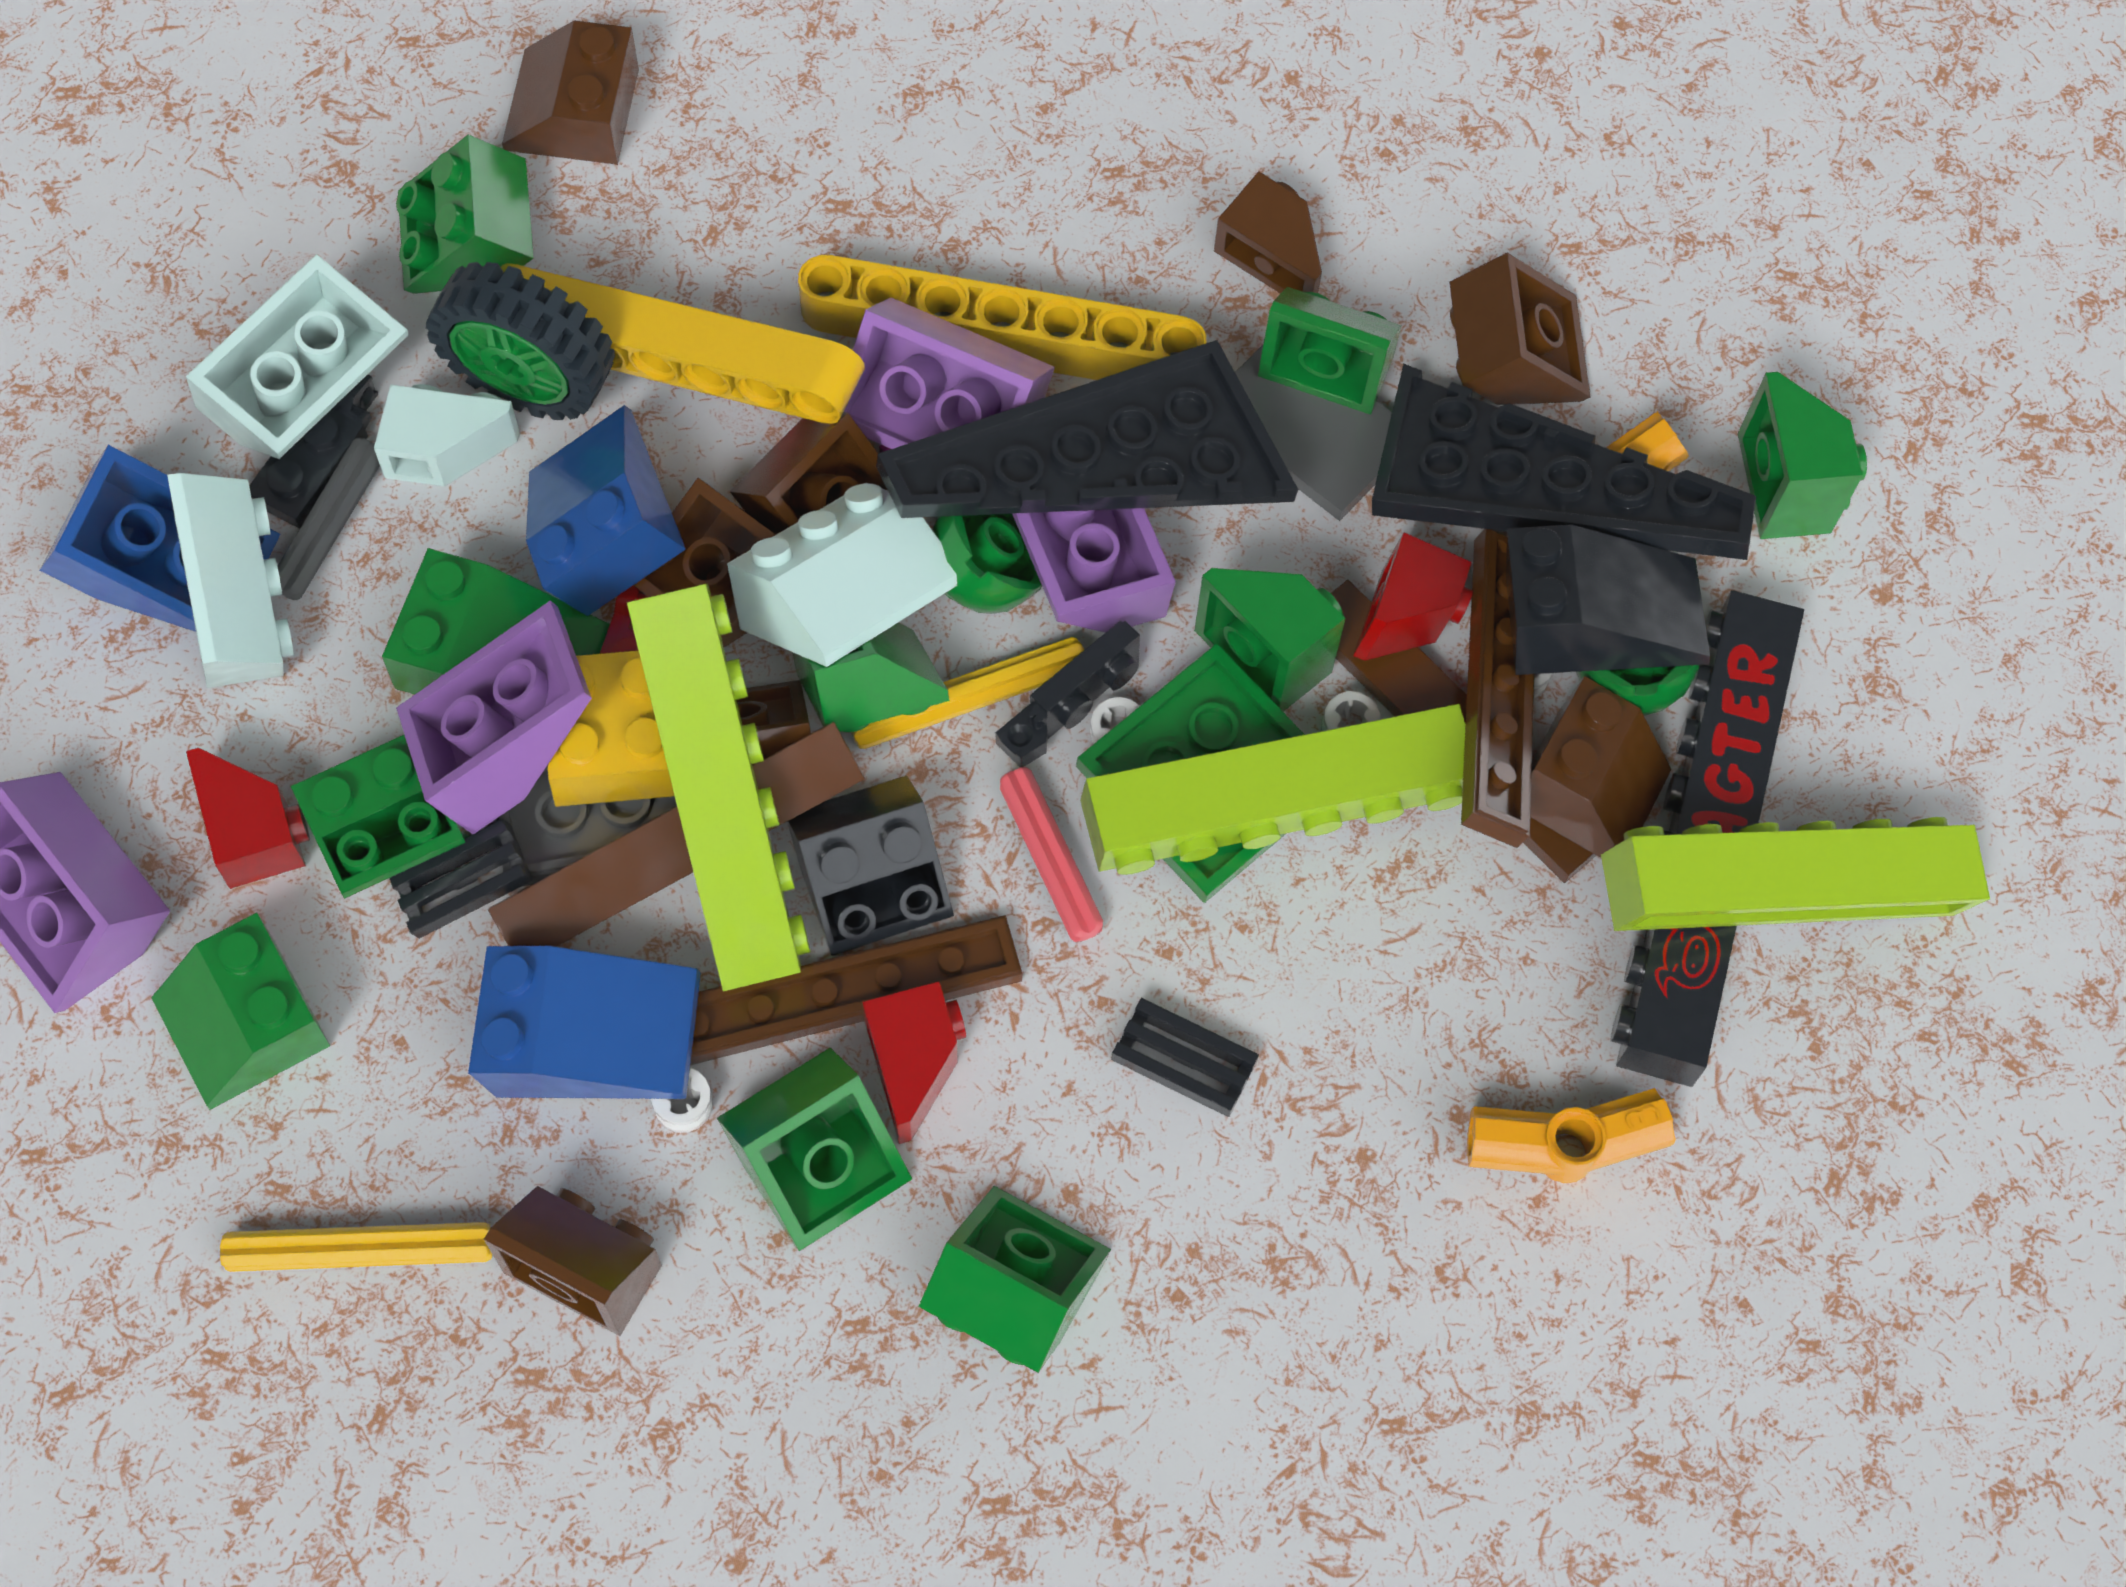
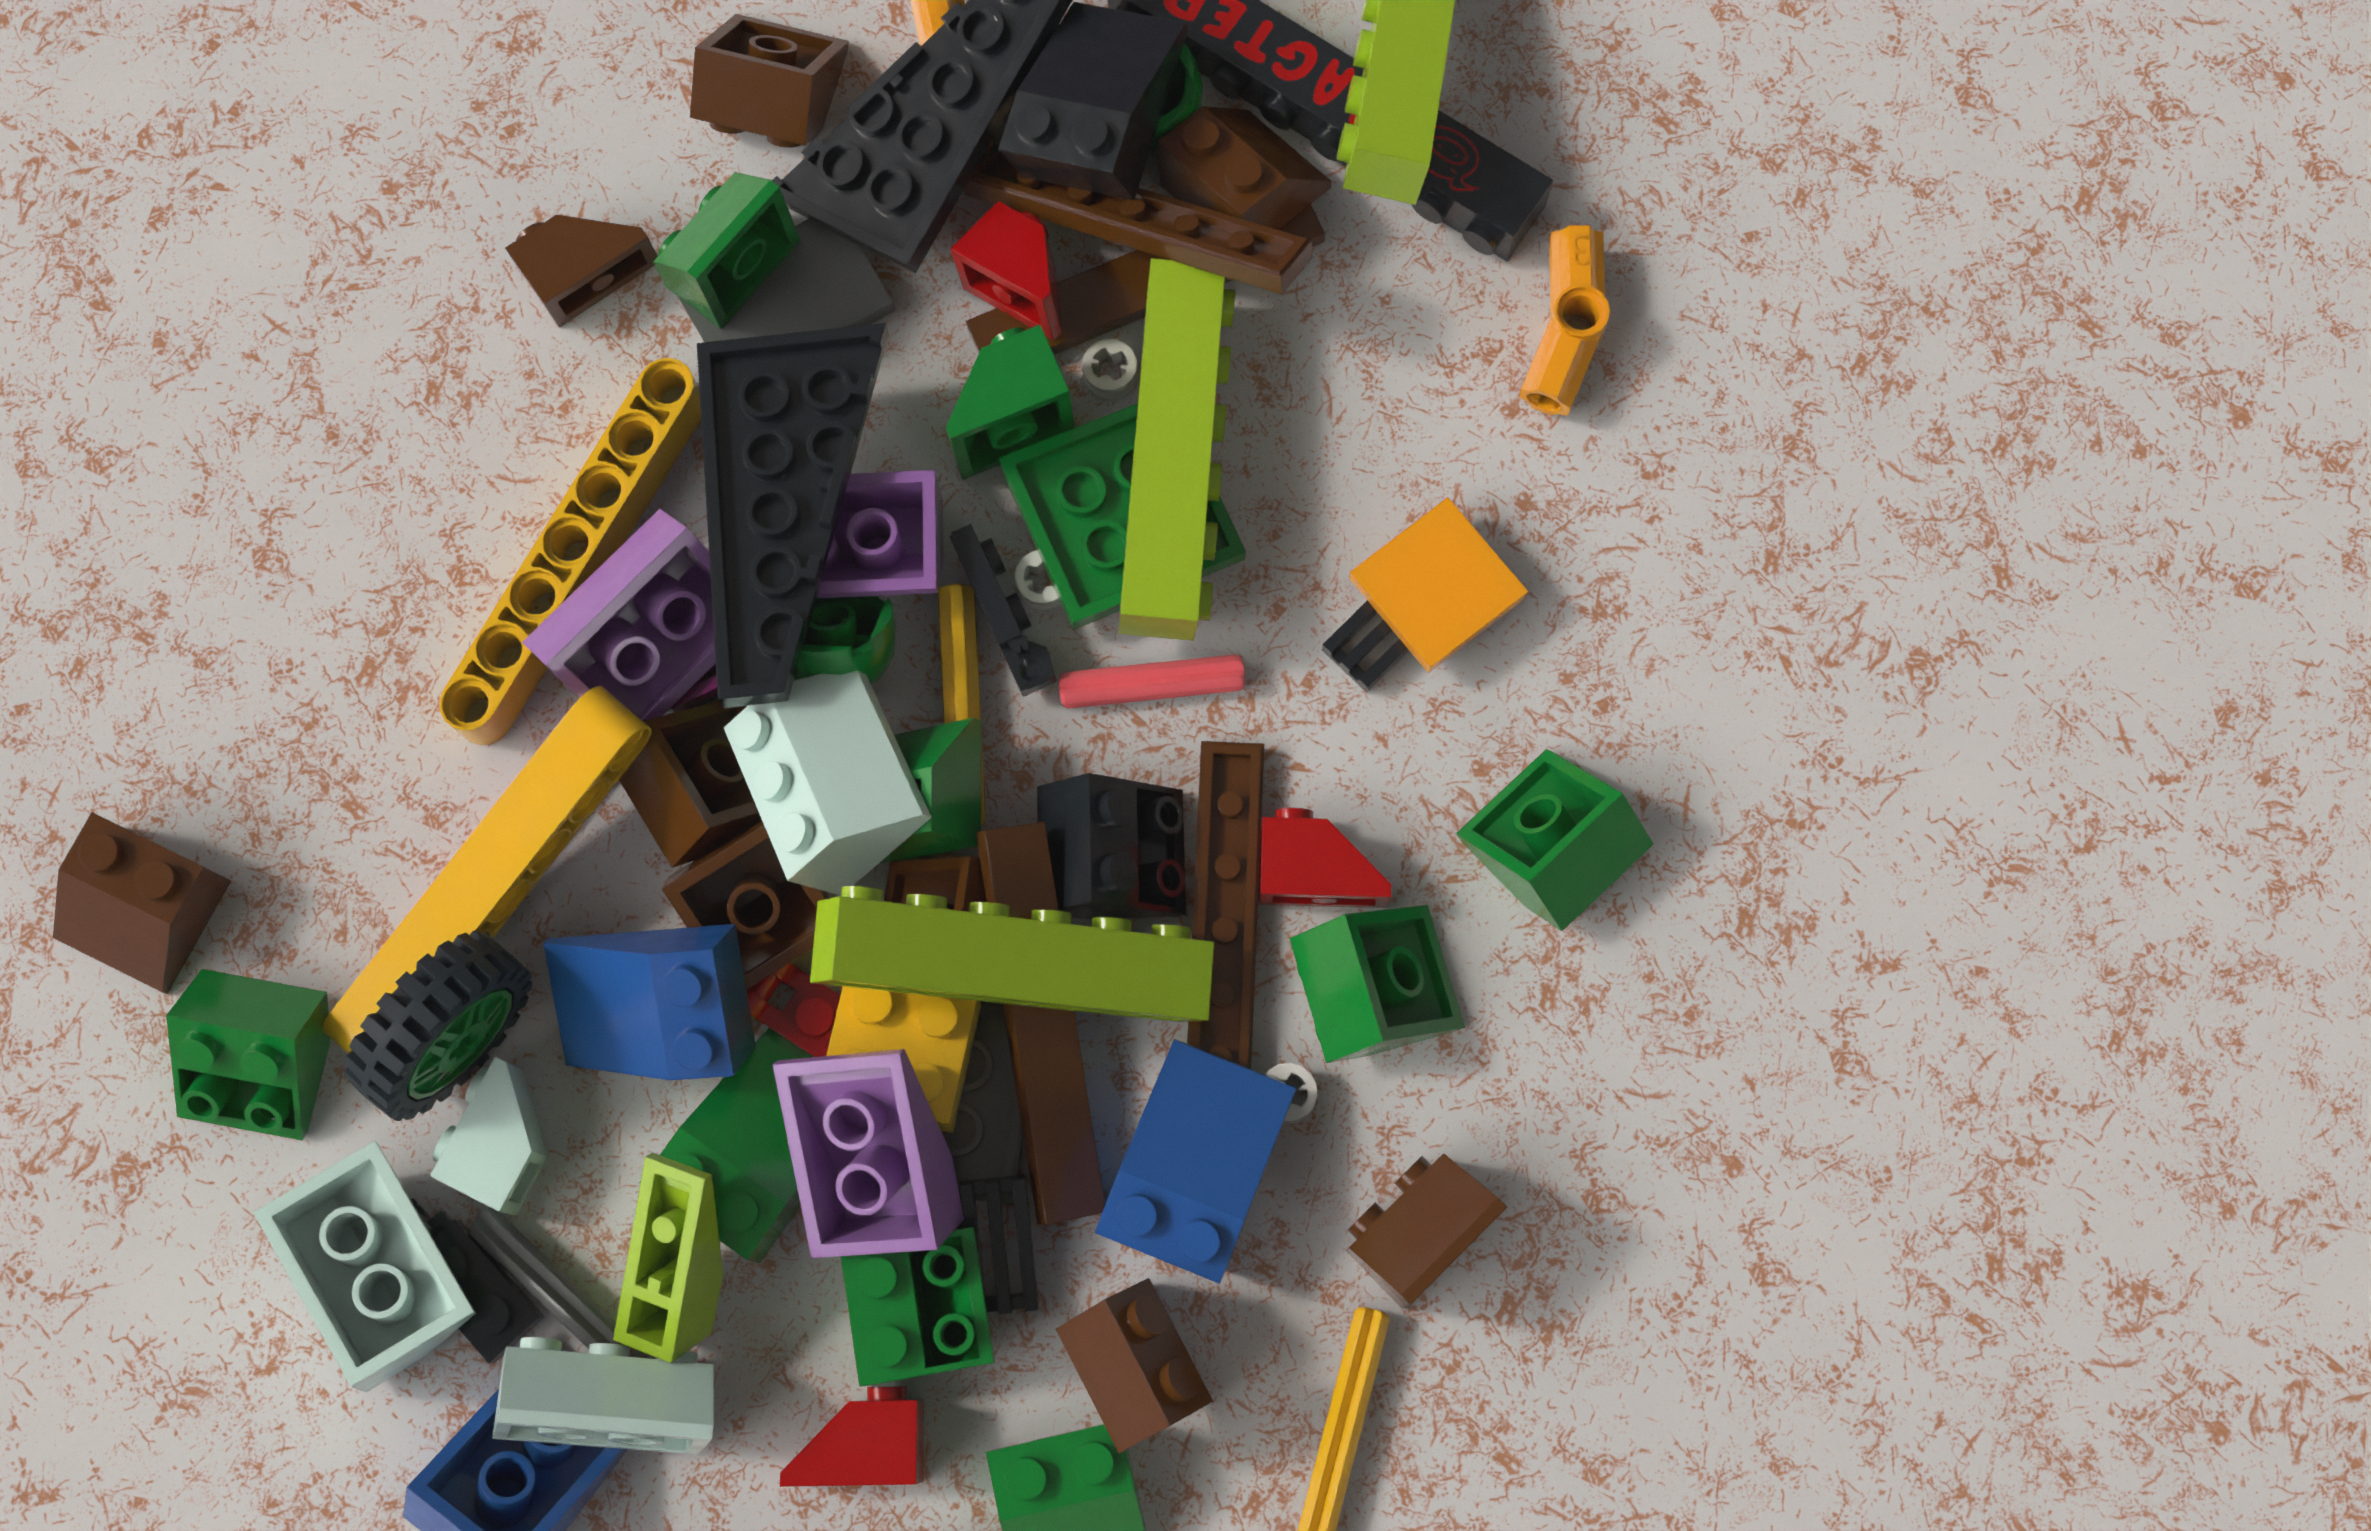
camera: 65 degrees left, 10 degrees up
(357, 597) = (671, 1262): none -> lime slope
(376, 1025) = (1134, 1365): none -> reddish brown slope
(1237, 1085) = (1438, 584): none -> light orange tile

